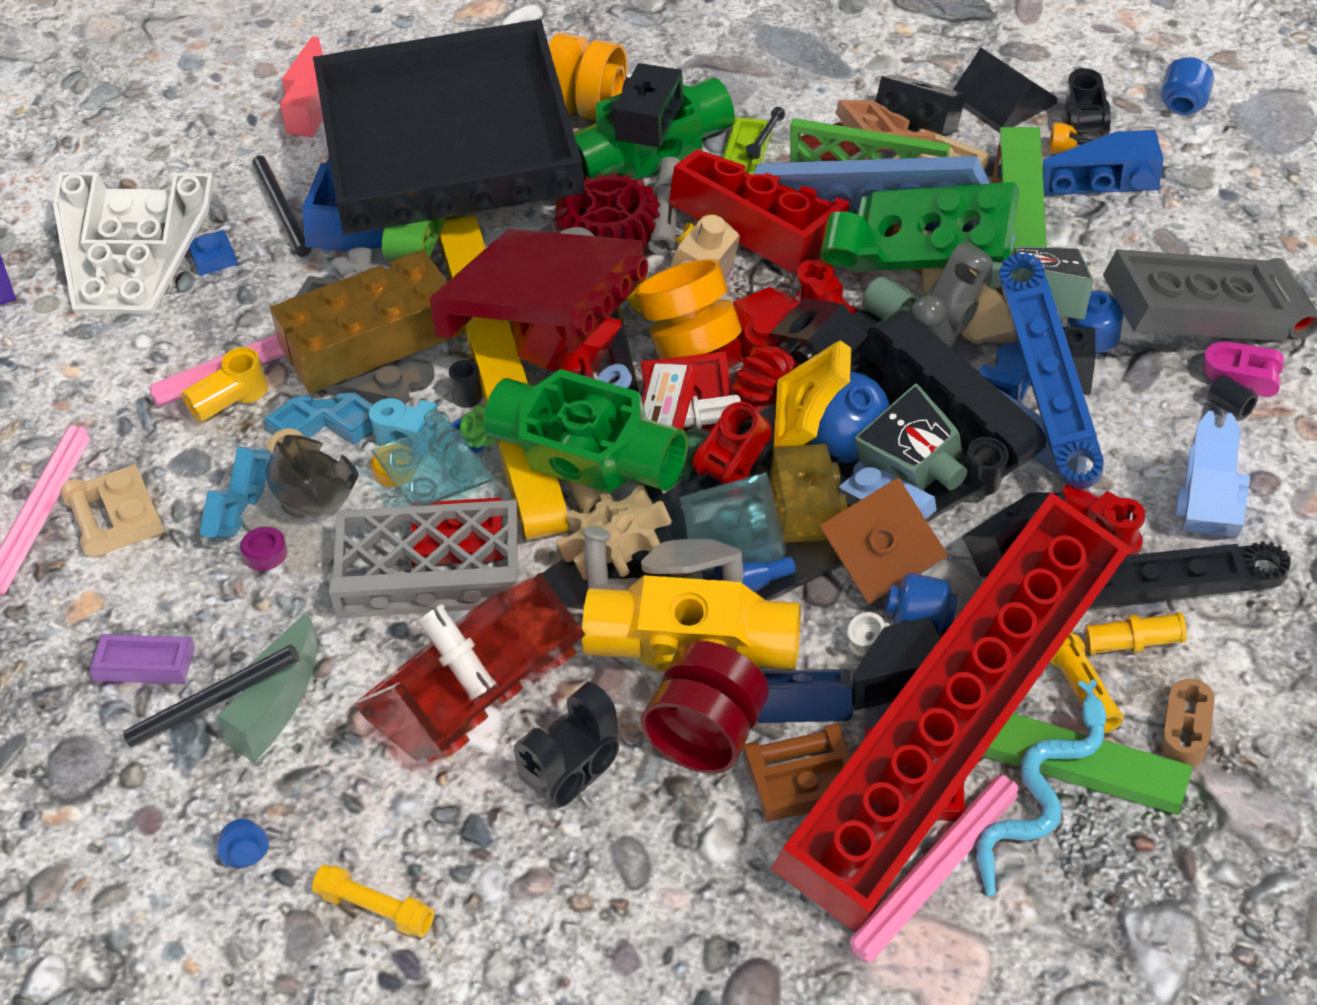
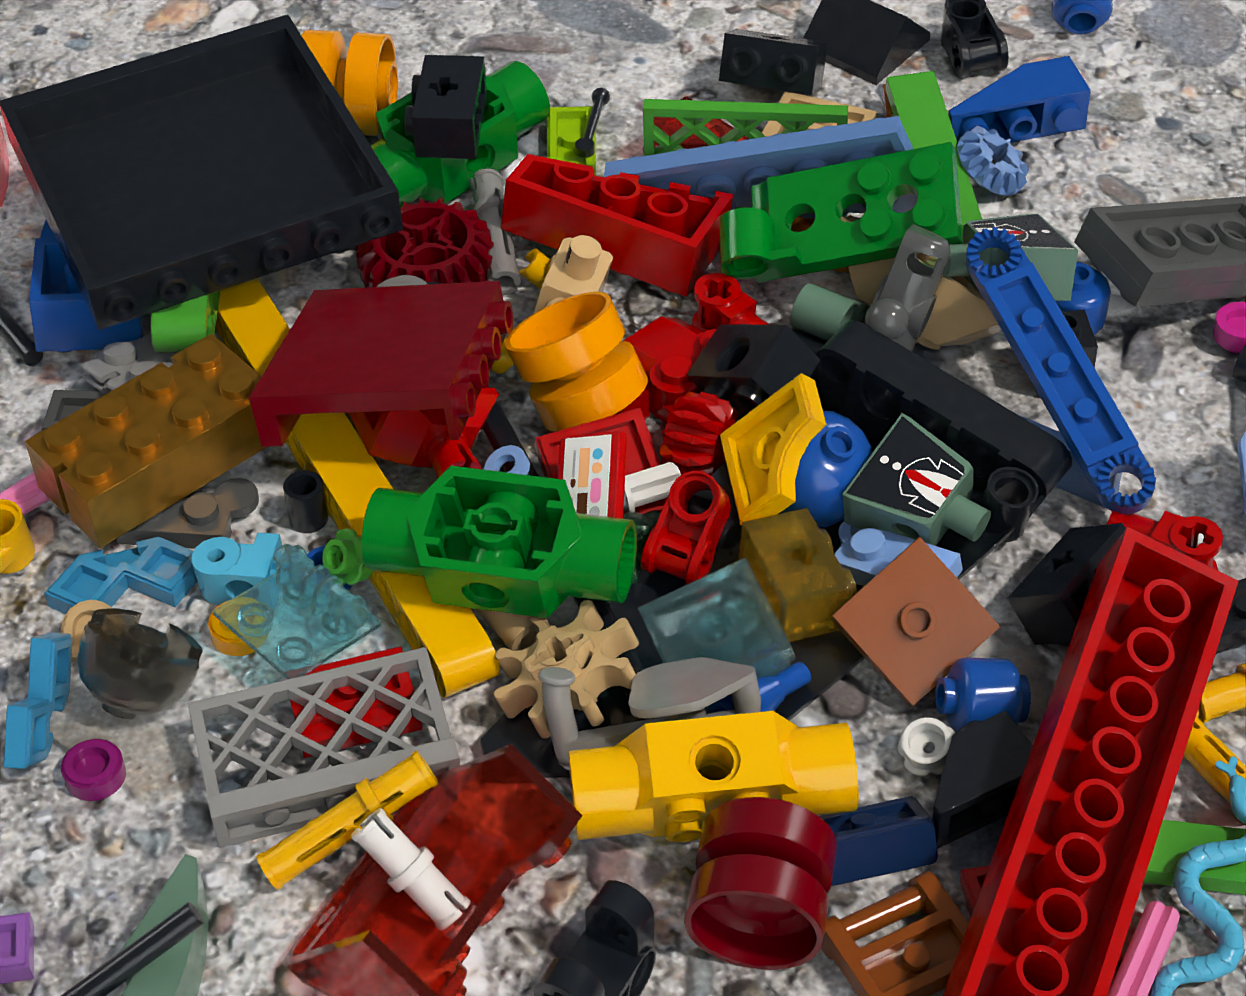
camera: 15 degrees left, 0 degrees up
(404, 619) = (335, 826): none -> yellow pin
(875, 117) = (728, 85): nougat wing -> none
(1009, 372) = (993, 372): blue leg -> none
(1063, 138) = (958, 81): light orange hinge -> none
(1073, 219) = (976, 152): none -> medium blue gear

